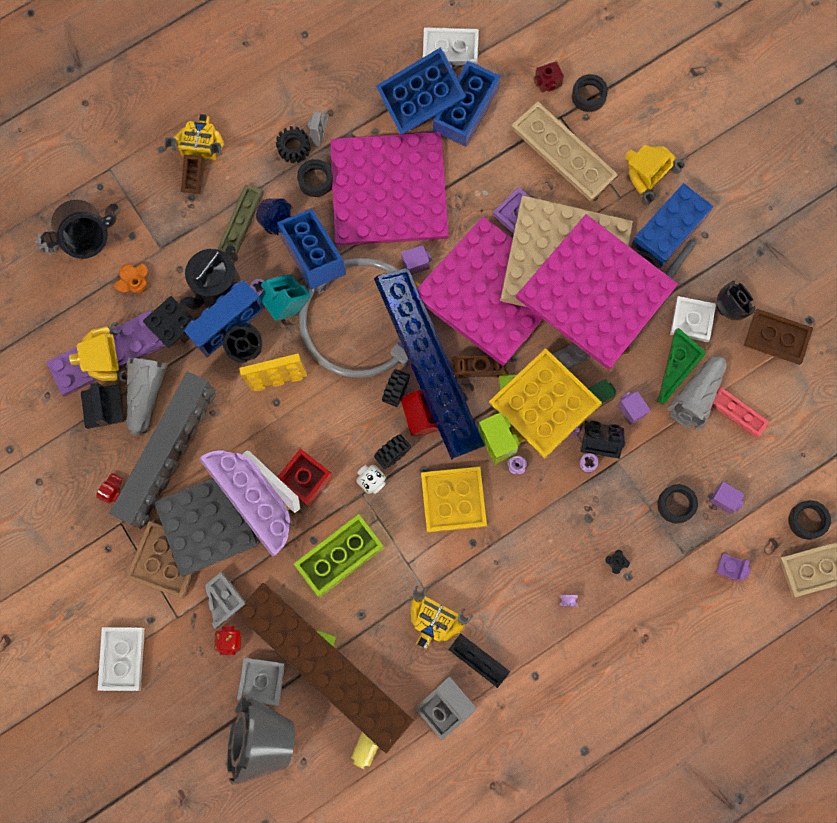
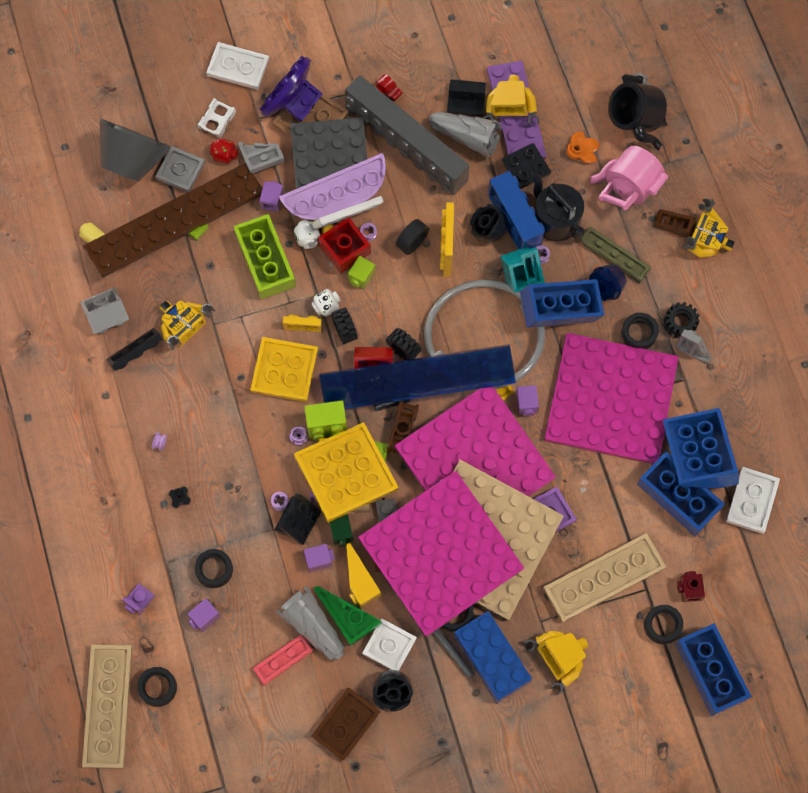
camera: 100 degrees right, 5 degrees down
(142, 584) = (293, 92): none -> dark purple bracket
(156, 216) = (632, 177): none -> bright pink piece
(190, 654) = (222, 120): none -> white piece
(267, 572) = (270, 196): none -> medium lavender brick
(277, 412) = (412, 236): none -> black tyre
(284, 458) = (366, 226): none -> lavender bush
(302, 521) = (306, 234): none -> white head
(328, 453) = (361, 272): none -> lime brick
(400, 505) = (297, 323): none -> yellow plate
(618, 41) = (713, 670): none -> blue brick
(643, 362) = (362, 585): none -> yellow slope

